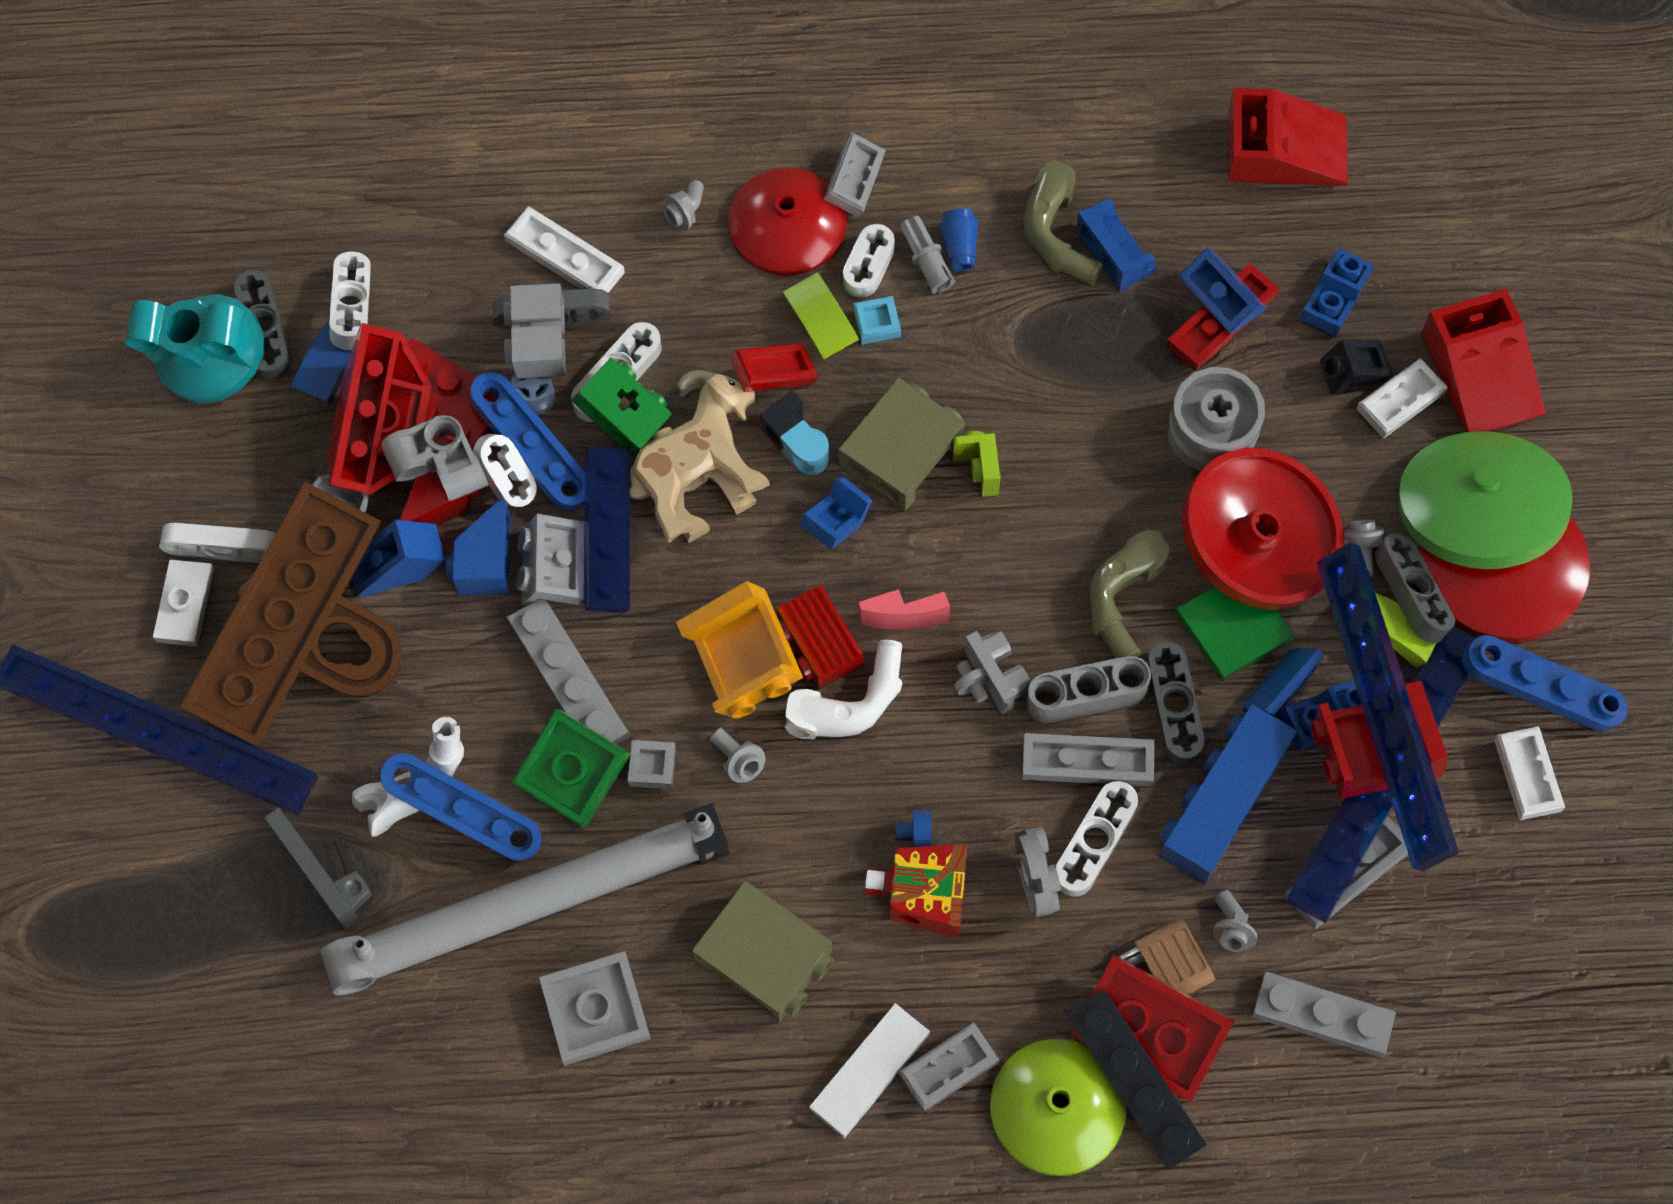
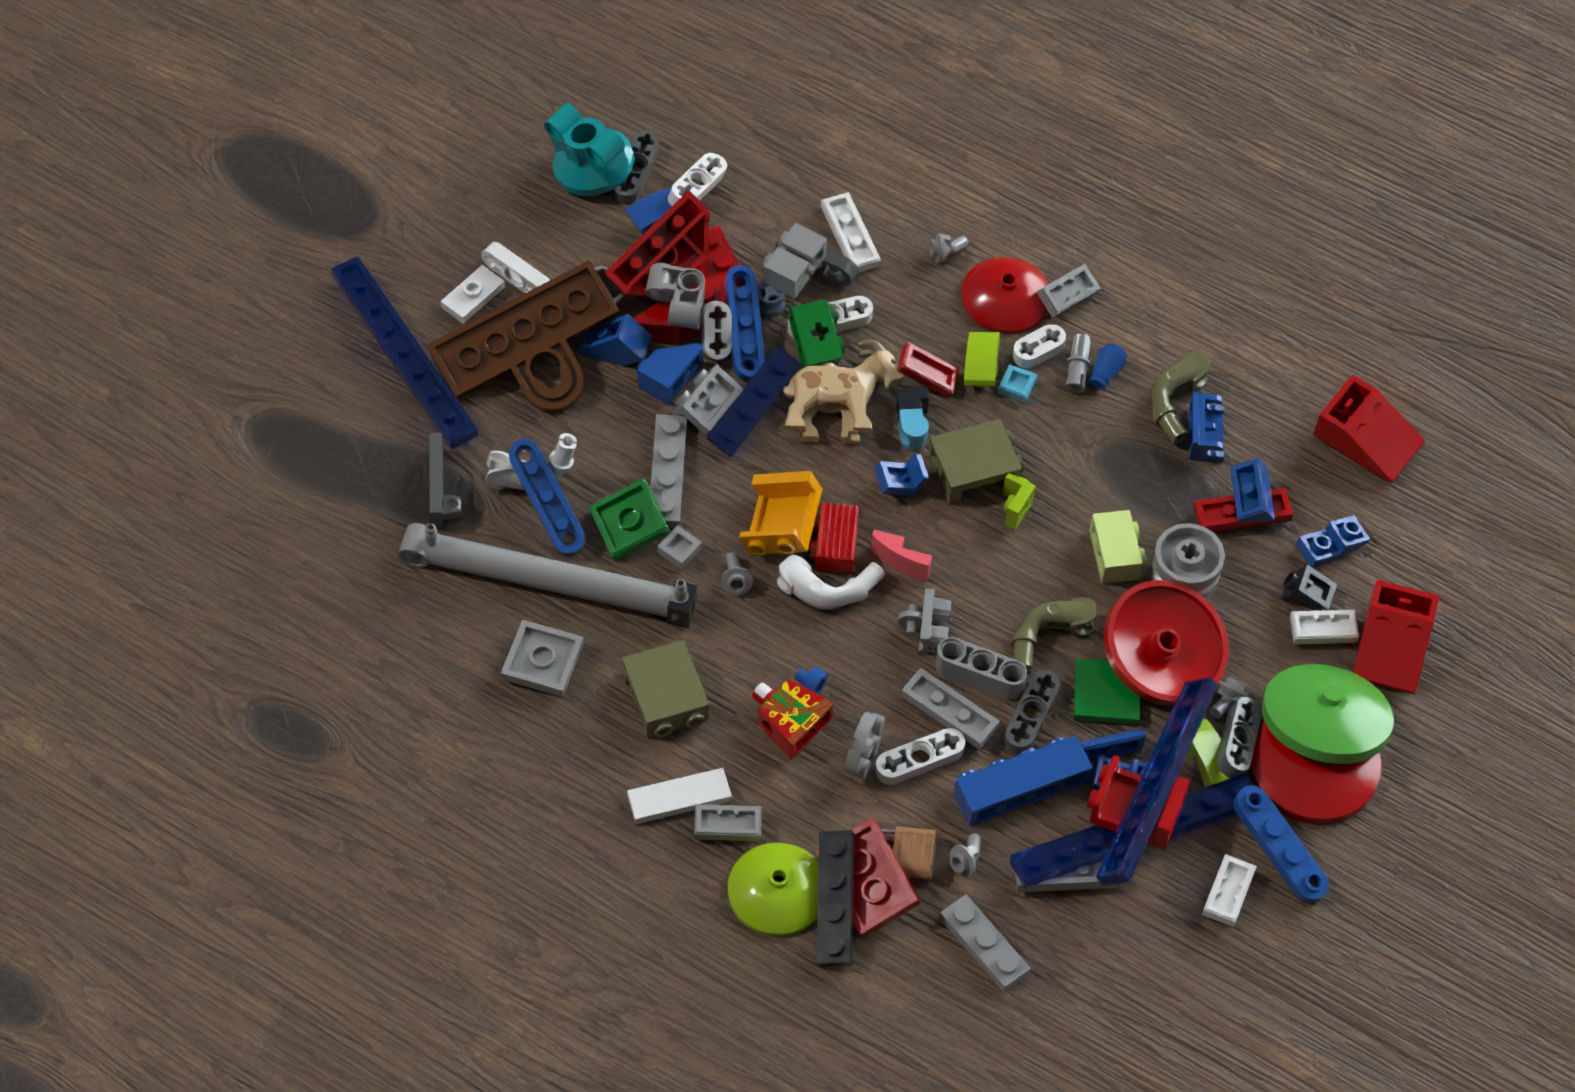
camera: 30 degrees right, 10 degrees down
(1125, 447) = (1116, 546): none -> yellowish green brick

